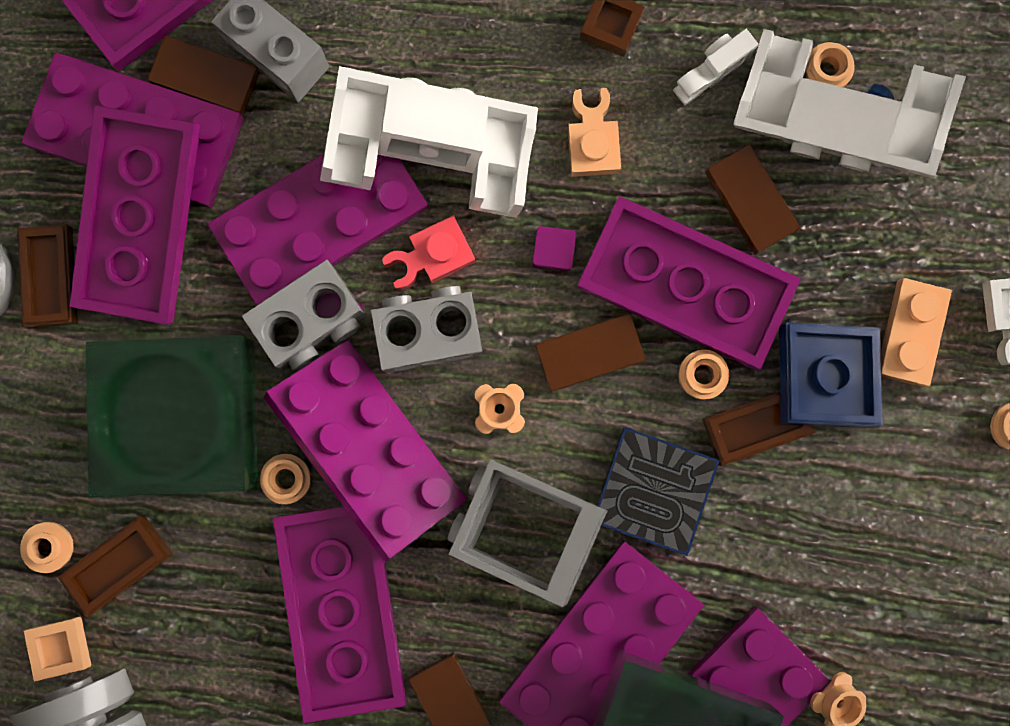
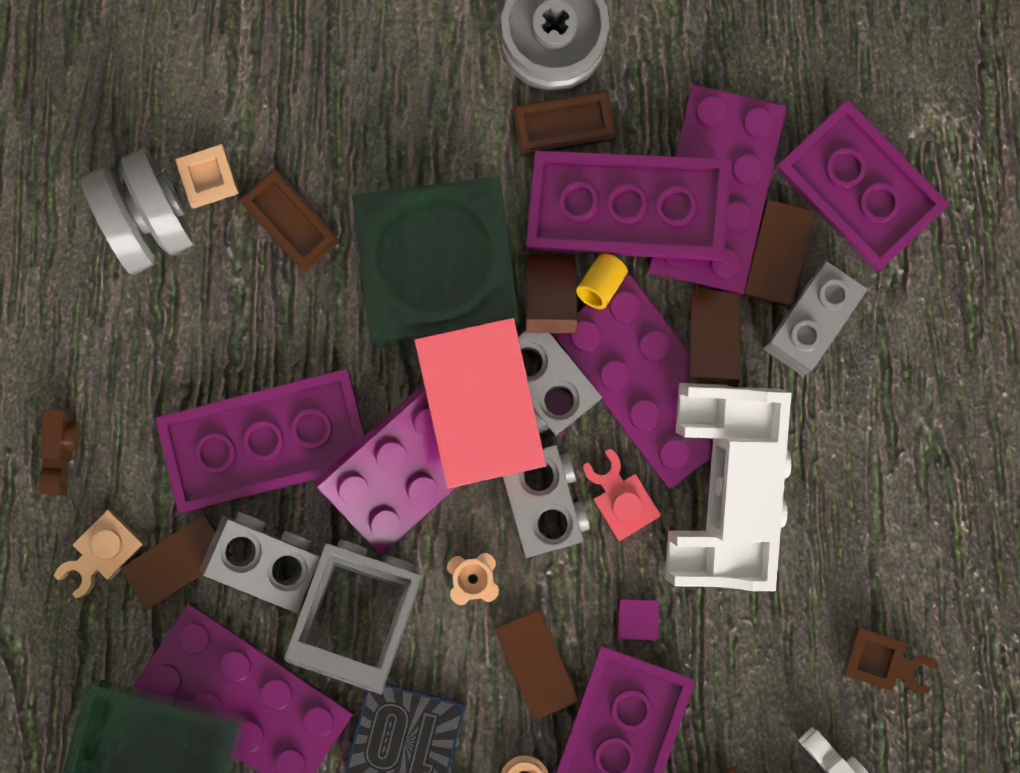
camera: 85 degrees right, 0 degrees up
(61, 547) = (302, 169): light nougat plate -> none
(209, 250) = (602, 281): none -> yellow hinge
(217, 302) = (551, 294): none -> reddish brown tile
(270, 483) = (375, 364): light nougat plate -> none
(279, 144) = (714, 337): none -> reddish brown tile
(317, 382) = (480, 403): none -> coral tile
(473, 630) = (255, 572): none -> light grey brick
(593, 143) = (748, 649): light nougat plate -> none

